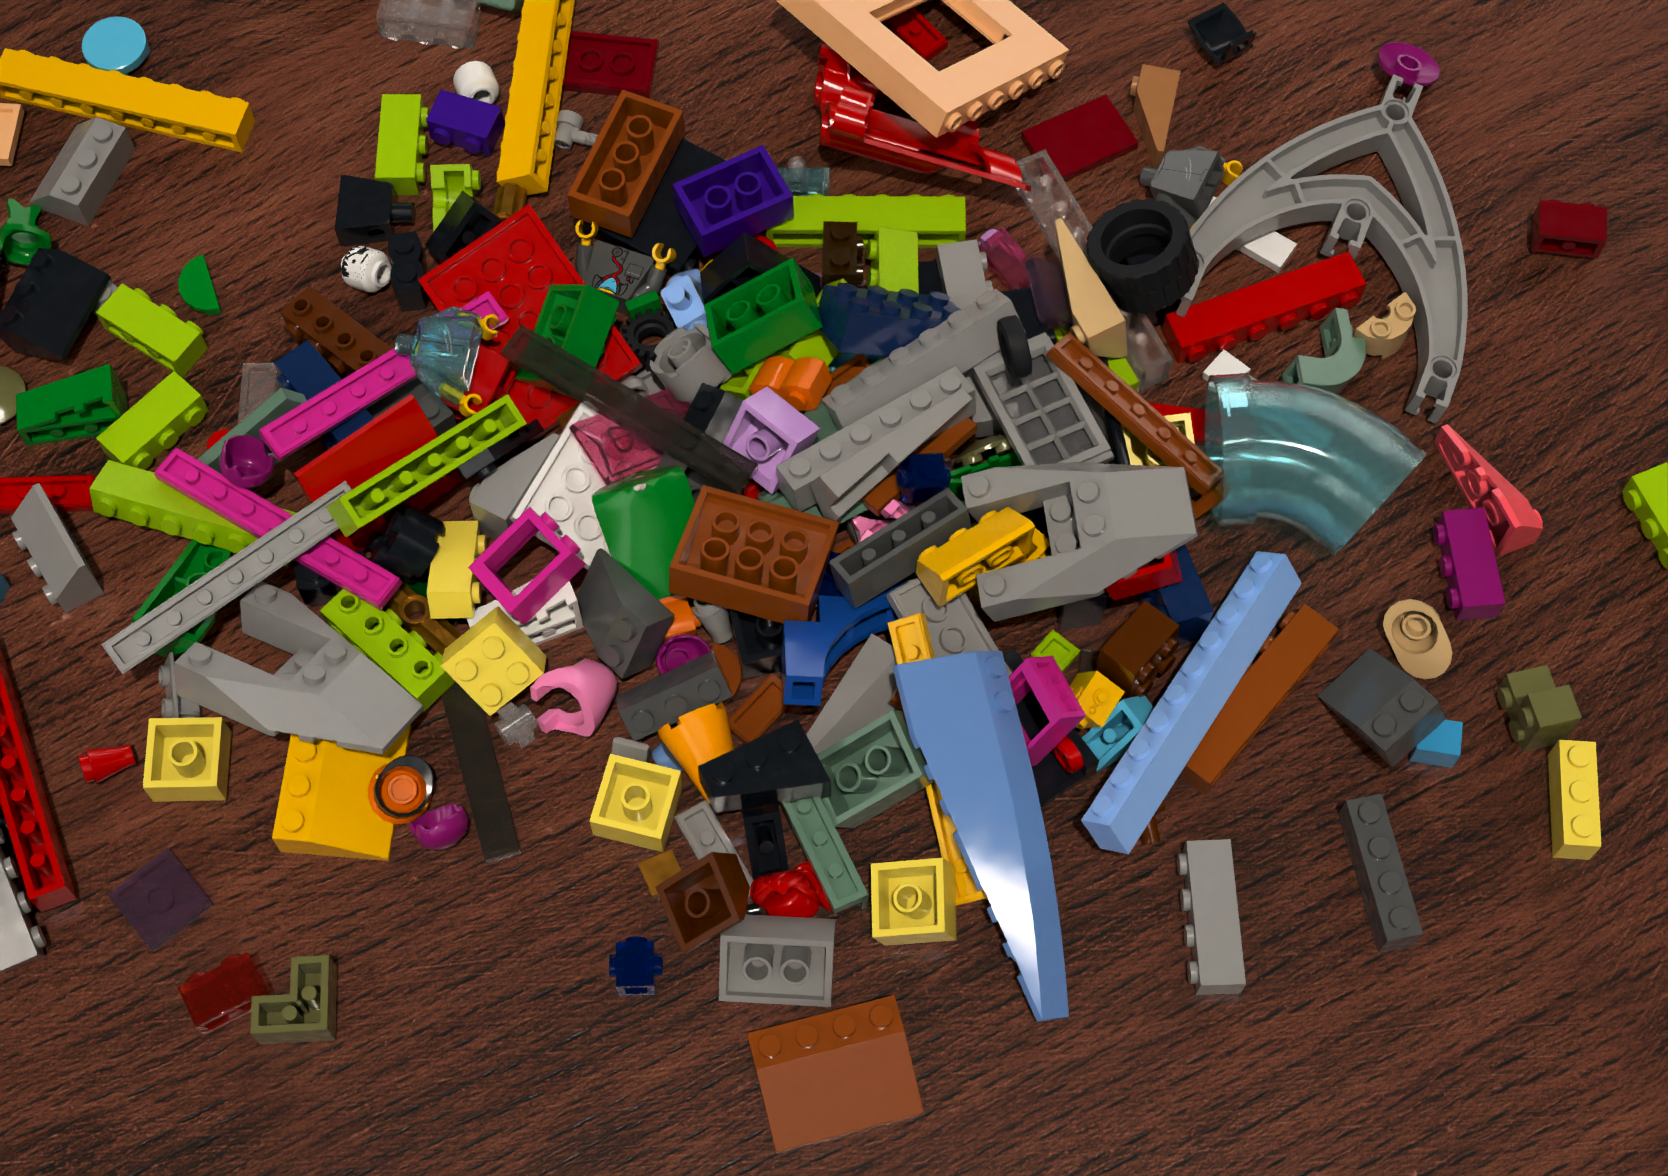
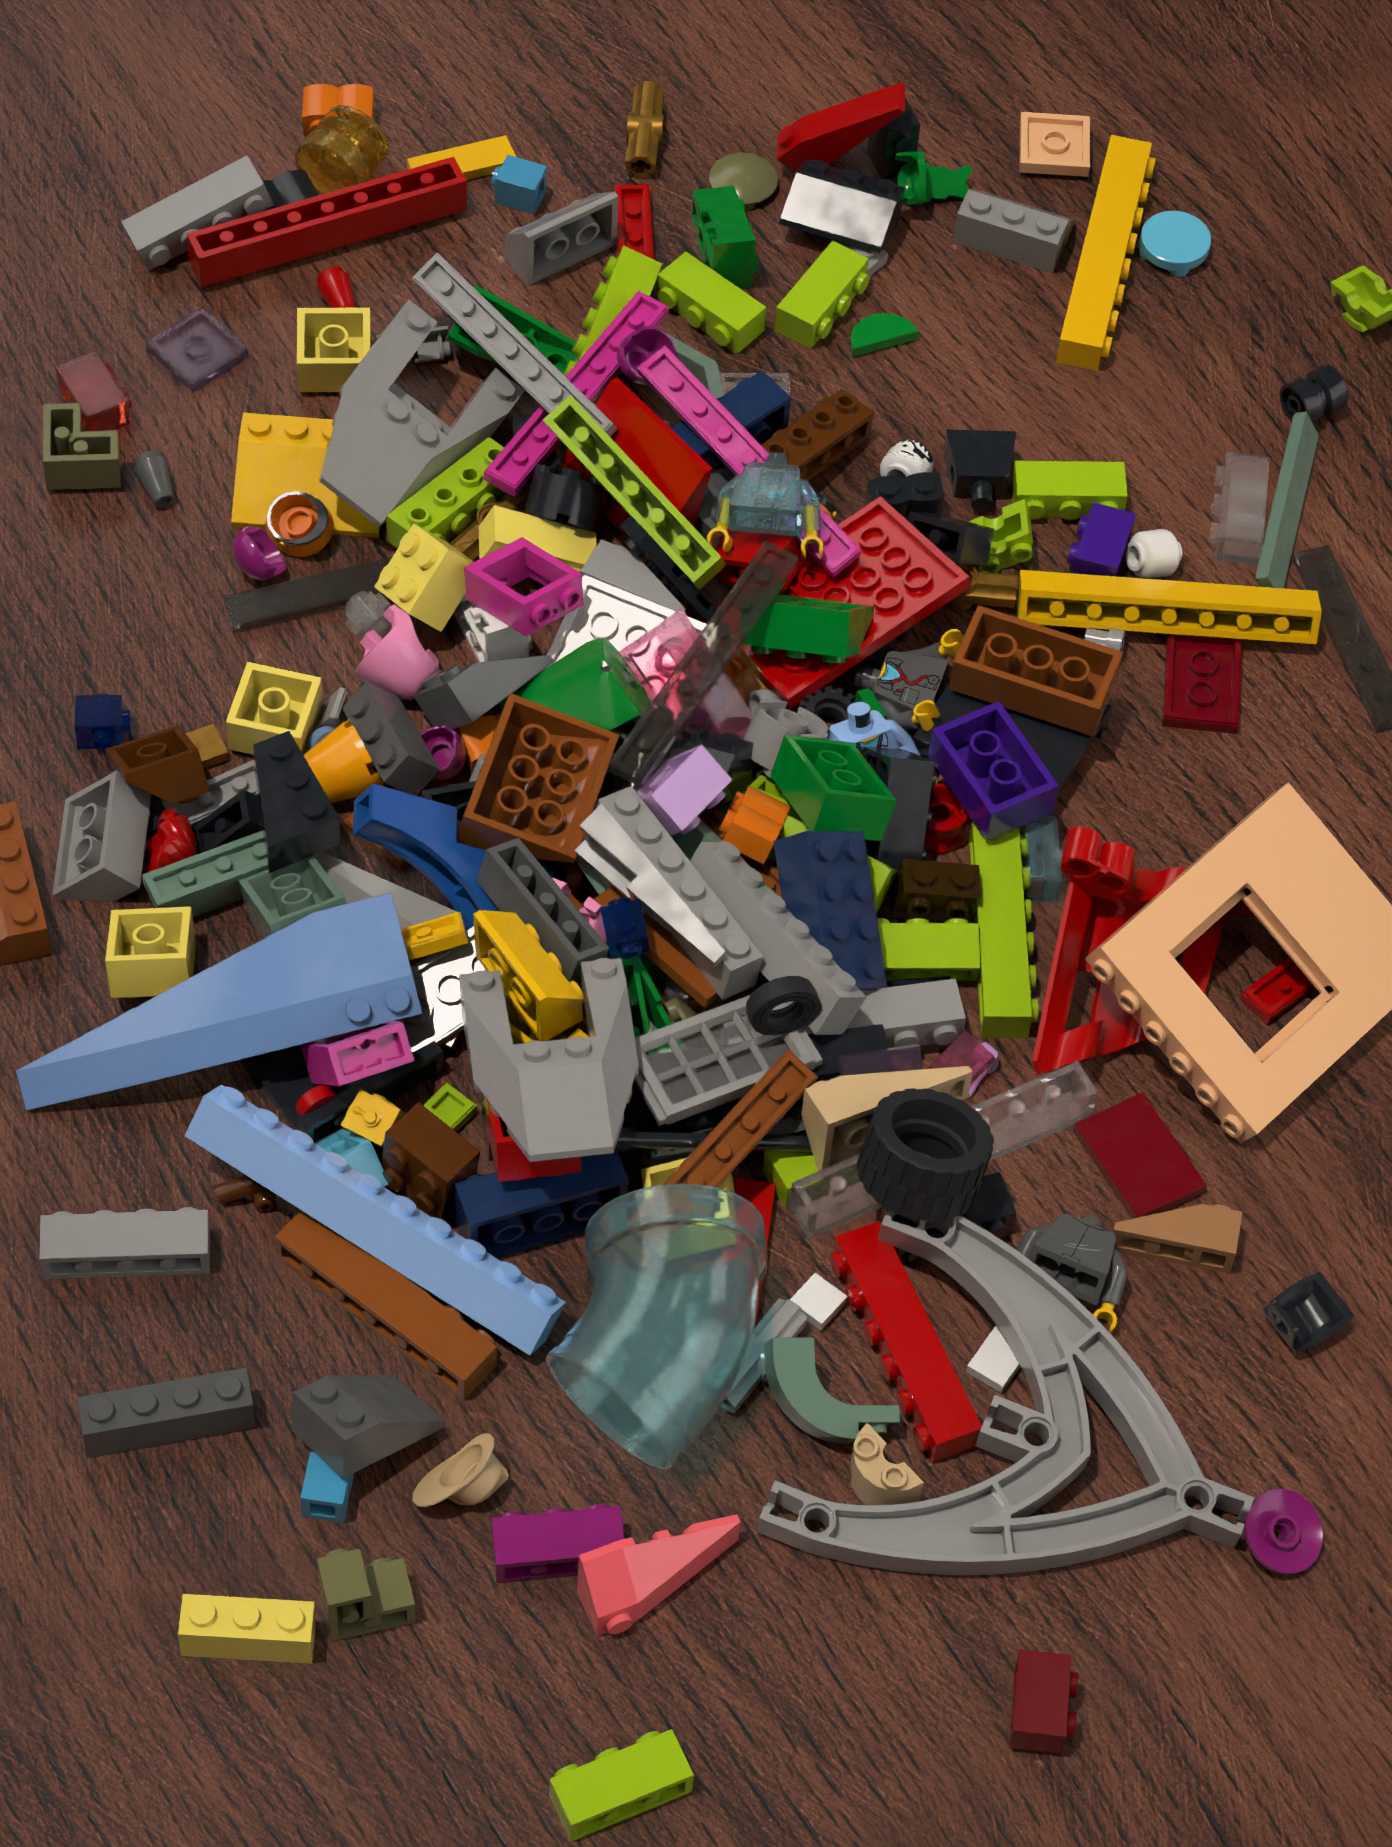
camera: 85 degrees right, 10 degrees down
(330, 931) = (154, 475): none -> dark grey cone

